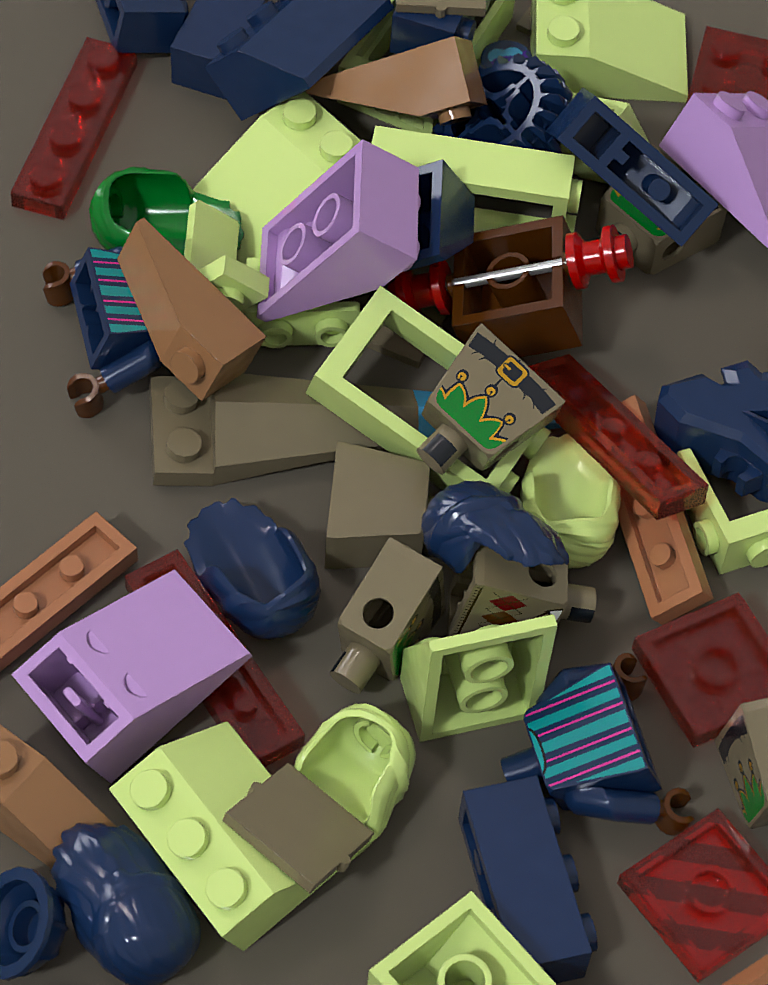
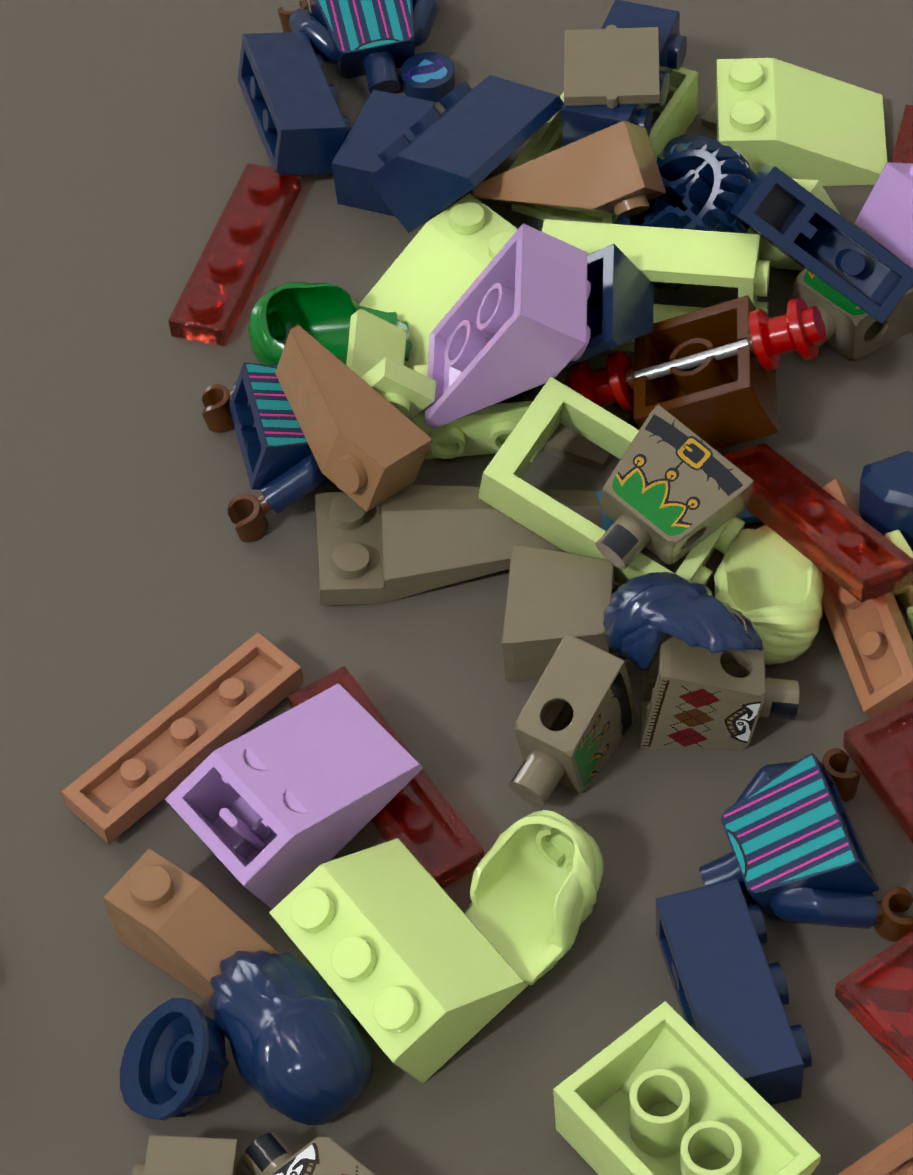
camera: 10 degrees right, 5 degrees down
(253, 569) = (426, 683): dark blue hair -> none
(298, 827) = (475, 944): dark tan piece -> none
(477, 676) = (668, 774): yellowish green slope -> none

